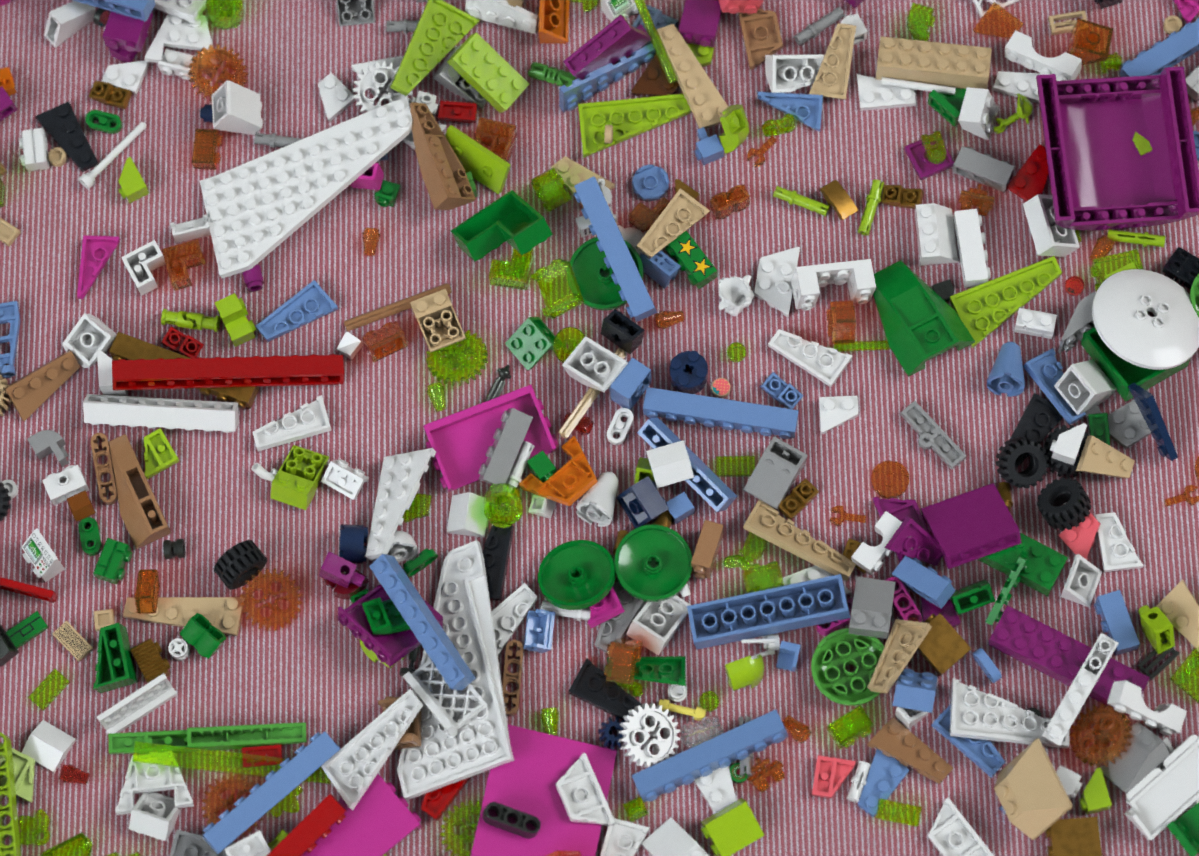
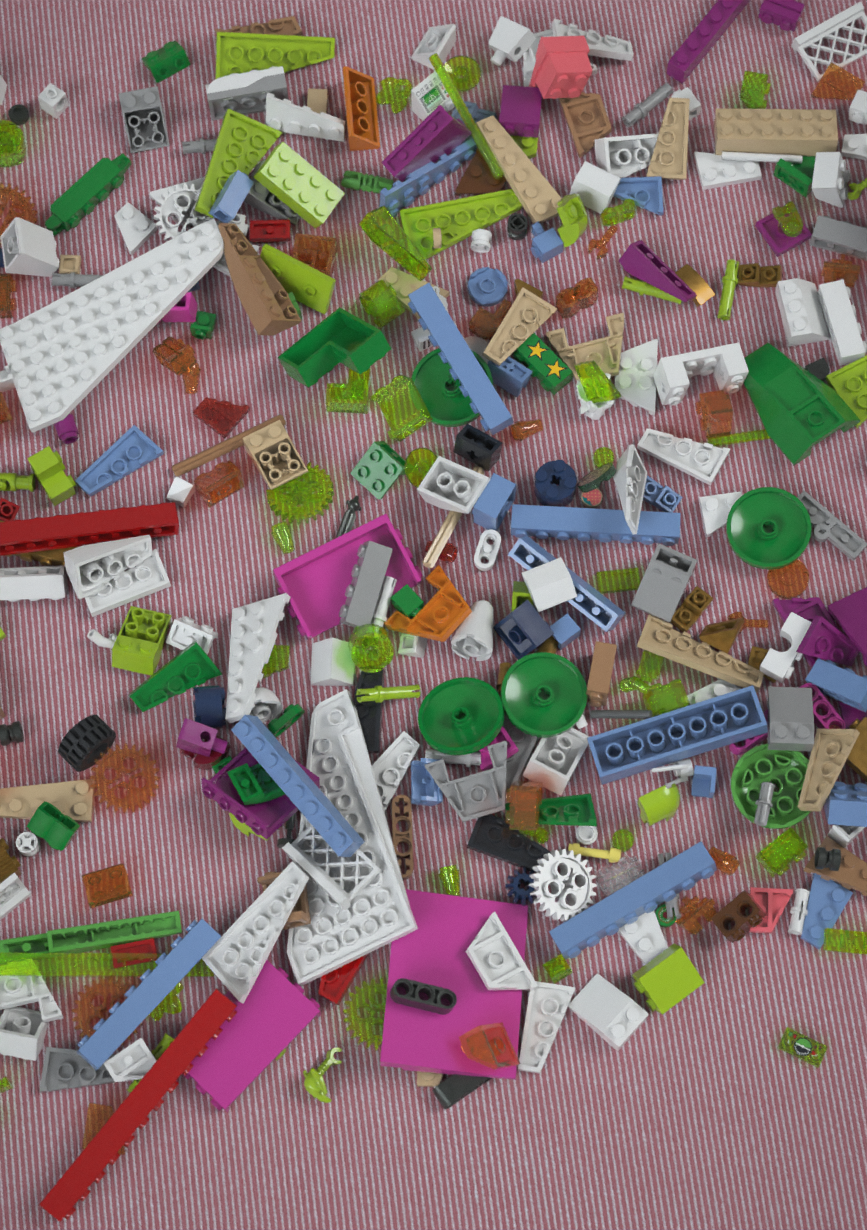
camera: 10 degrees left, 0 degrees up
(245, 693) = (107, 885): none -> clear orange bracket
(267, 404) = (98, 563): none -> white wedge
(272, 125) = (69, 264): none -> tan tile
(294, 61) = (87, 193): none -> green hinge
(334, 509) = (181, 673): none -> green wing
(358, 220) = (175, 355): none -> clear orange brick
(393, 279) = (220, 415): none -> clear red wing
(424, 79) = (231, 197): none -> medium blue brick
(506, 547) = (381, 693): none -> lime pin
(566, 131) = (393, 241): none -> clear neon green wedge
(583, 645) = (476, 793): none -> light grey wing
(649, 139) = (481, 240): none -> white wheel
(687, 132) = (517, 231): none -> pearl dark grey wheel
(721, 587) = (621, 714): none -> dark grey bar
(723, 371) = (595, 477): none -> clear green tile
(735, 283) = (596, 383): none -> clear neon green wing
(738, 258) = (603, 351): none -> tan wing
(756, 379) = (630, 483): none -> white wedge
(759, 99) = (595, 186): none -> white slope
(799, 179) = (647, 266): none -> magenta slope
(800, 776) = (736, 912): none -> reddish brown brick
(822, 525) = (722, 634): none -> pearl gold slope
(838, 682) = (764, 804): none -> light grey axle
(877, 432) = (768, 528): none -> green dish
(893, 737) = (827, 859): none -> pearl dark grey wheel

